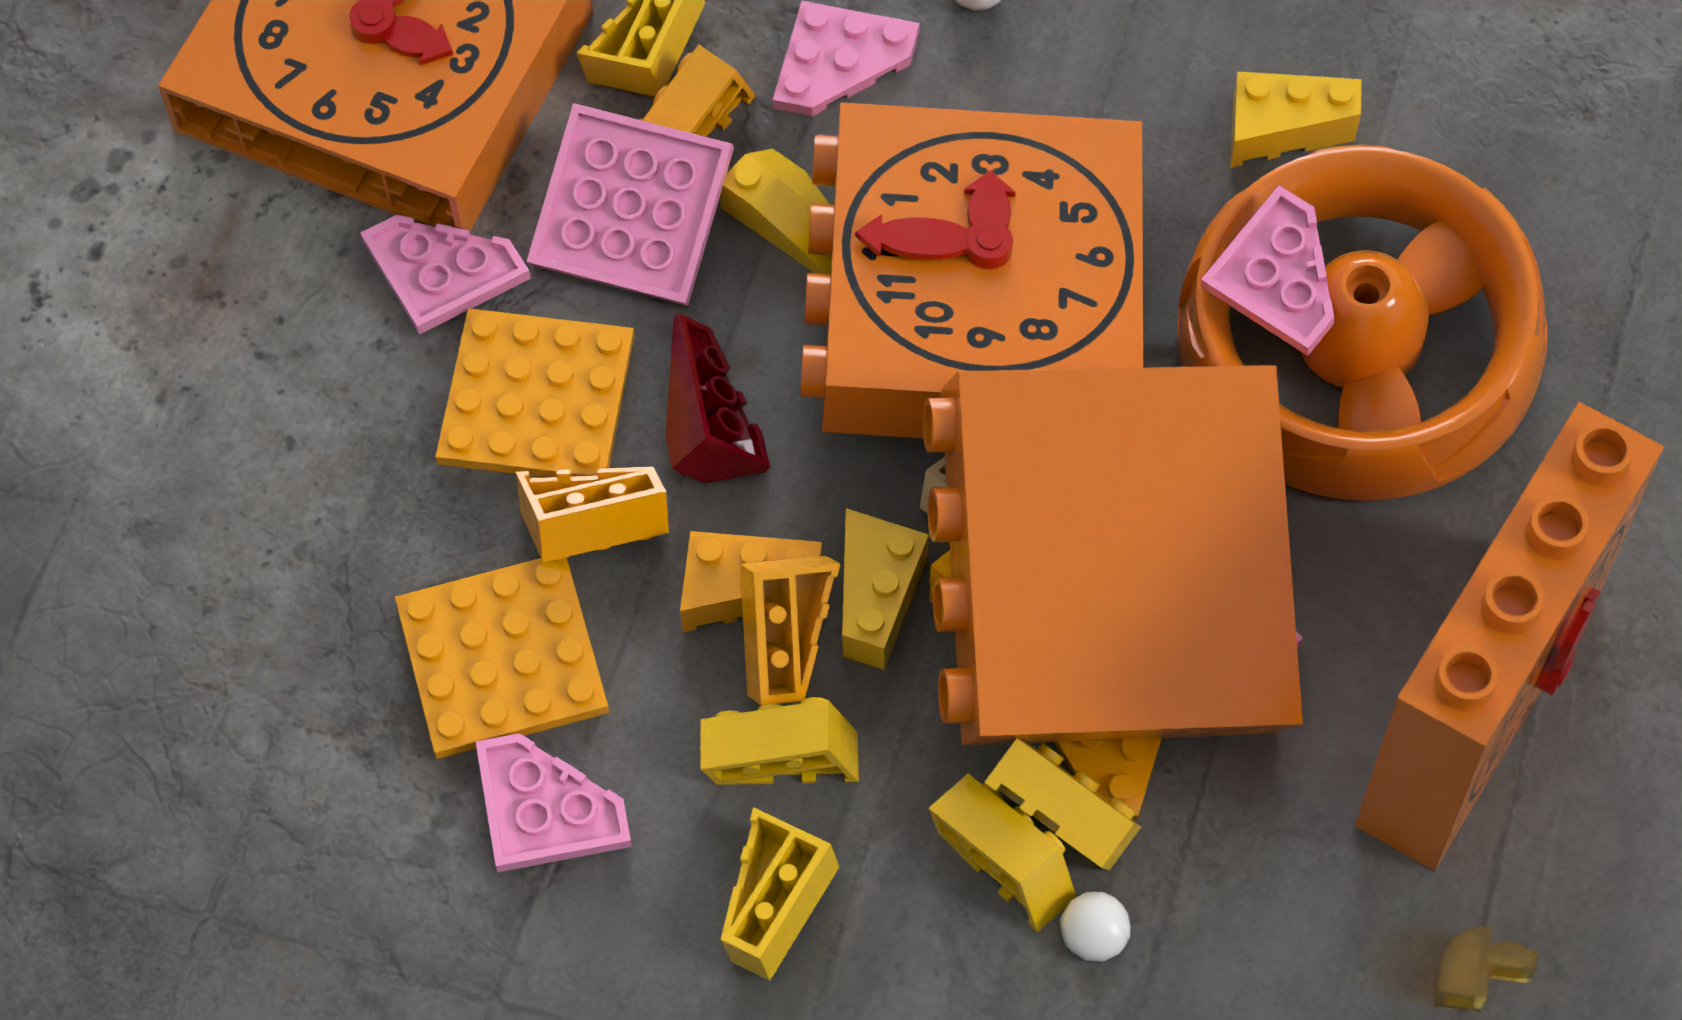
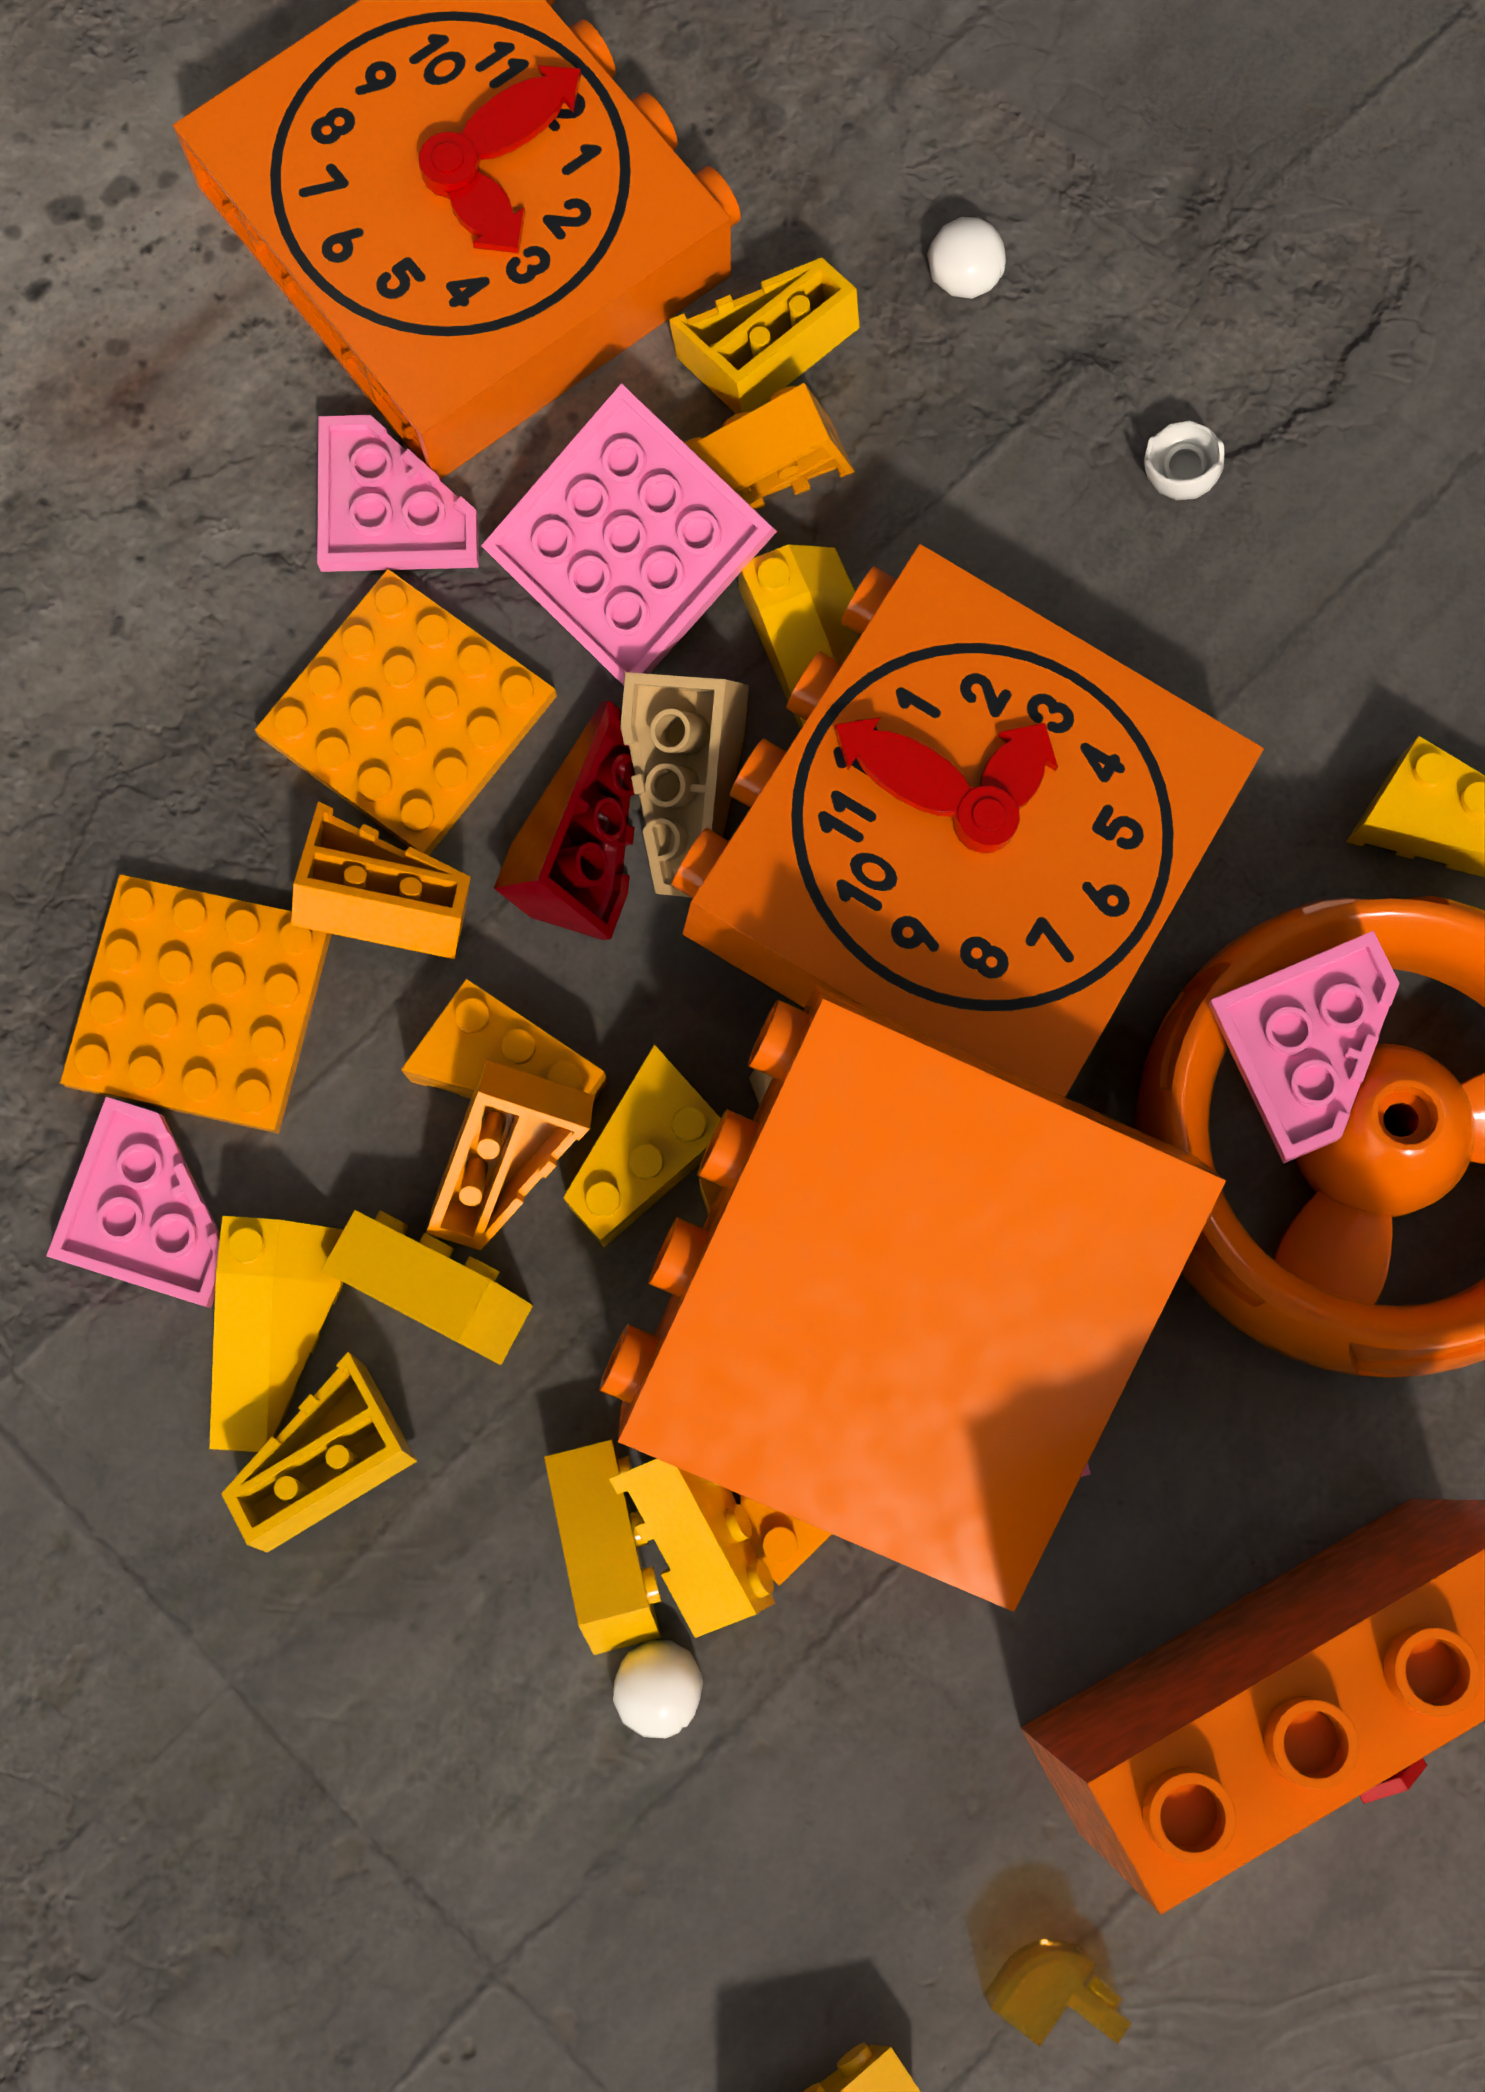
camera: 25 degrees right, 15 degrees up
(679, 828) = (265, 1323): none -> yellow wedge
(754, 331) = (684, 758): none -> tan wedge
(839, 55) = (974, 471): bright pink plate -> none

